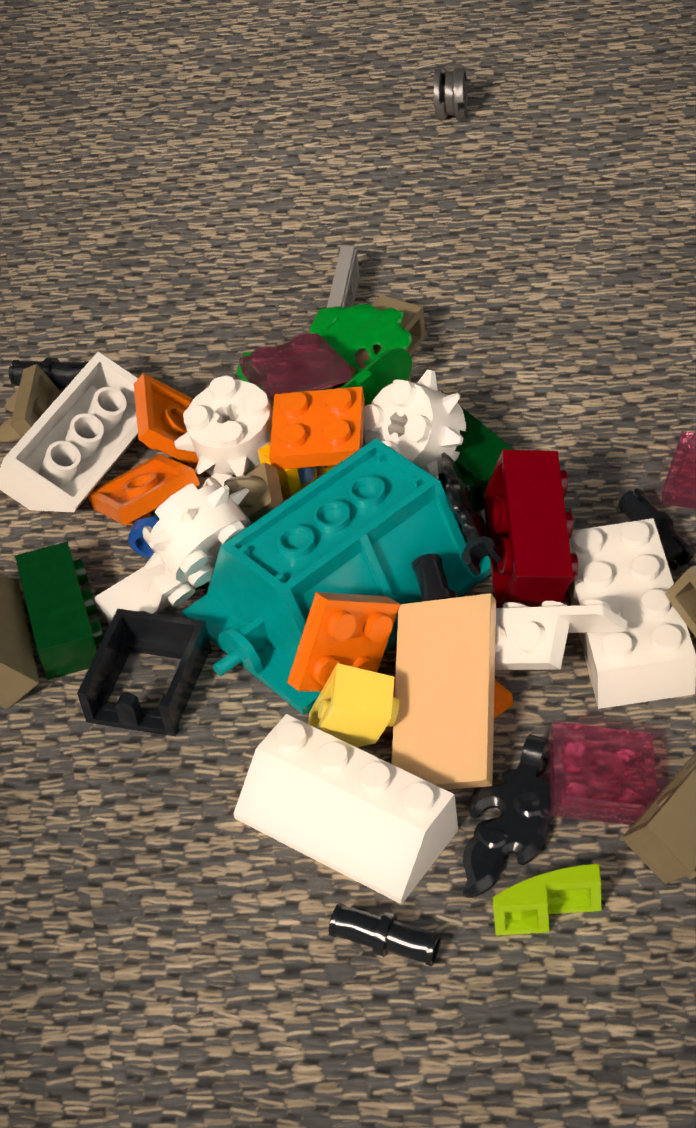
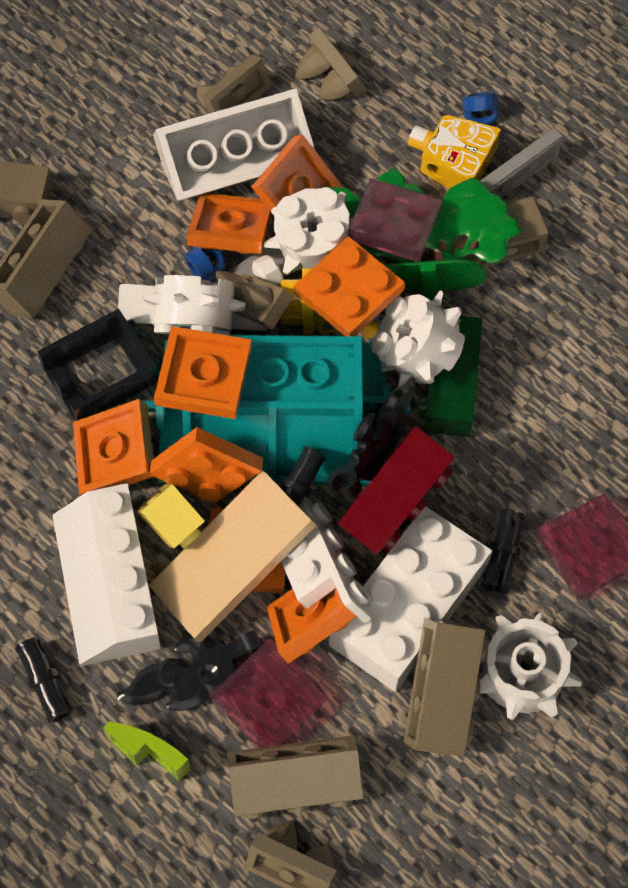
camera: 35 degrees right, 20 degrees up
(59, 372) = (277, 66): black pin -> none
(59, 609) = (96, 270): dark green brick -> none
(115, 336) = (320, 58): none -> dark tan tile
(234, 709) = (113, 447): none -> orange plate
(255, 279) = (481, 102): none -> blue tile
(273, 315) = (455, 149): none -> yellow torso
(275, 548) = (203, 372): none -> orange plate
(573, 690) = (301, 628): none -> orange plate

